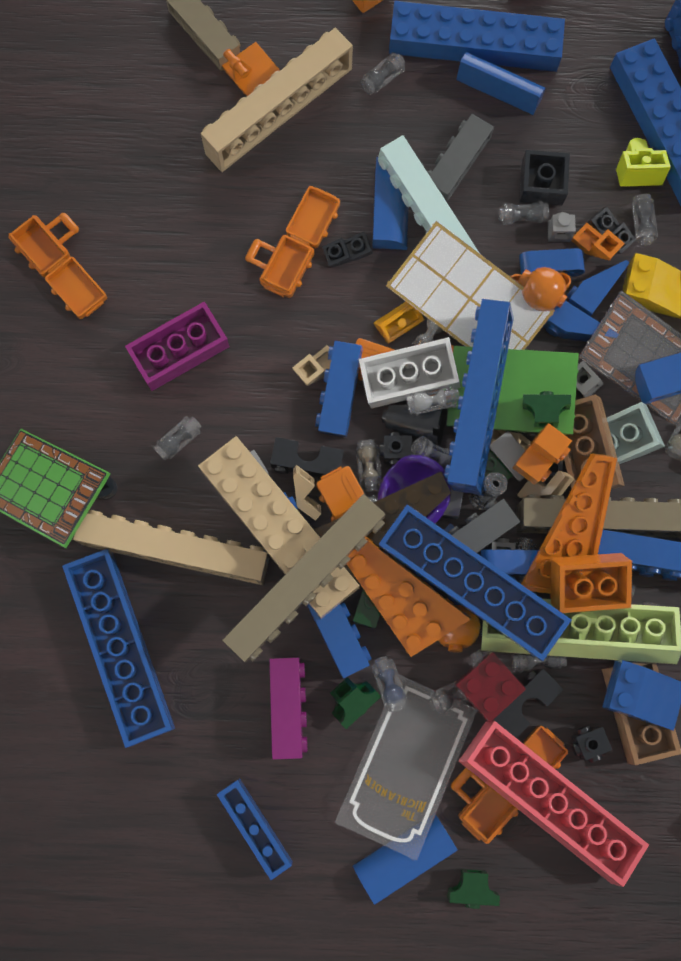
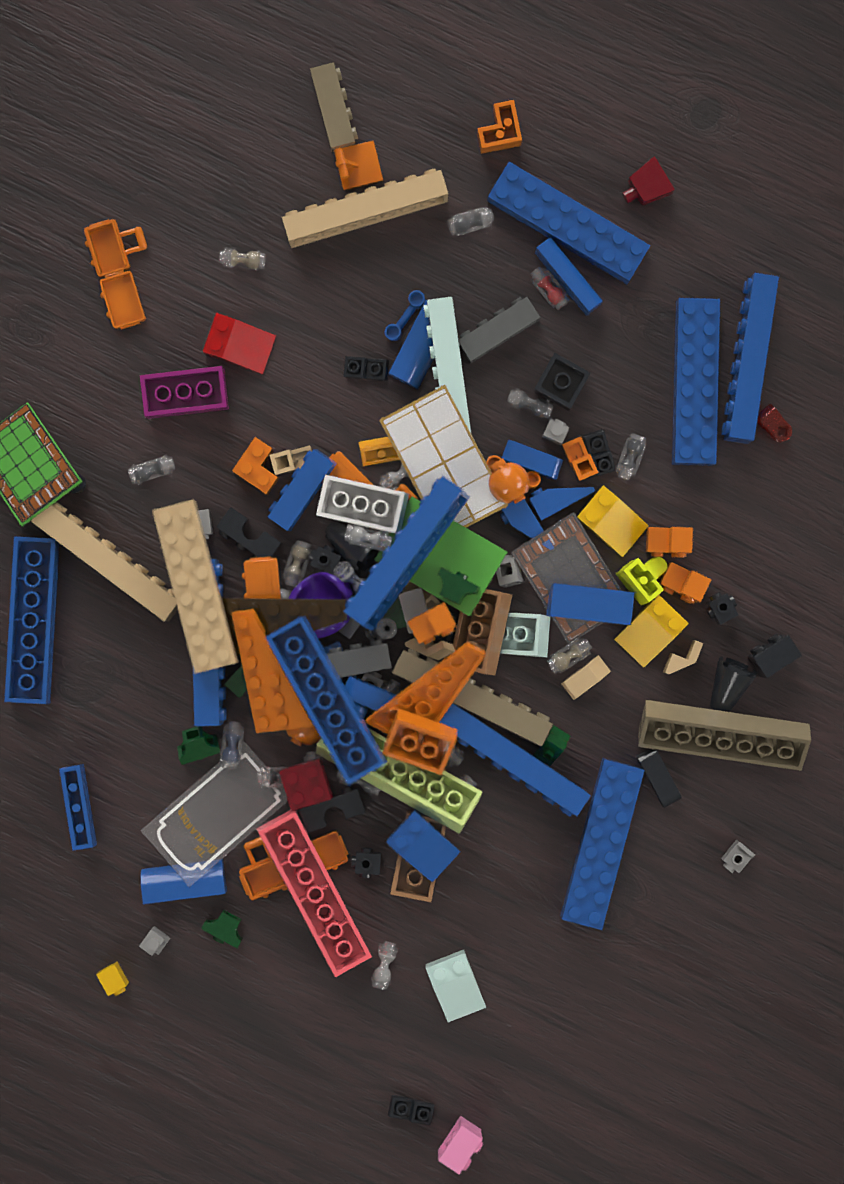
camera: 25 degrees right, 10 degrees up
(187, 195) = (253, 259): none -> clear piece
(210, 278) = (239, 343): none -> red slope
(280, 392) = (251, 466): none -> orange brick
(286, 708) = (142, 727): magenta brick -> none
(294, 253) = (318, 351): orange piece -> none
(303, 485) = (234, 557): tan slope -> none
(304, 578) = (194, 639): dark tan brick -> none
(366, 167) = (416, 300): none -> blue bar
(404, 942) = (154, 941): none -> light grey brick
(496, 104) = (556, 295): none -> clear piece
(642, 165) = (651, 407): neon yellow brick -> none
(664, 860) = (382, 974): none -> clear piece

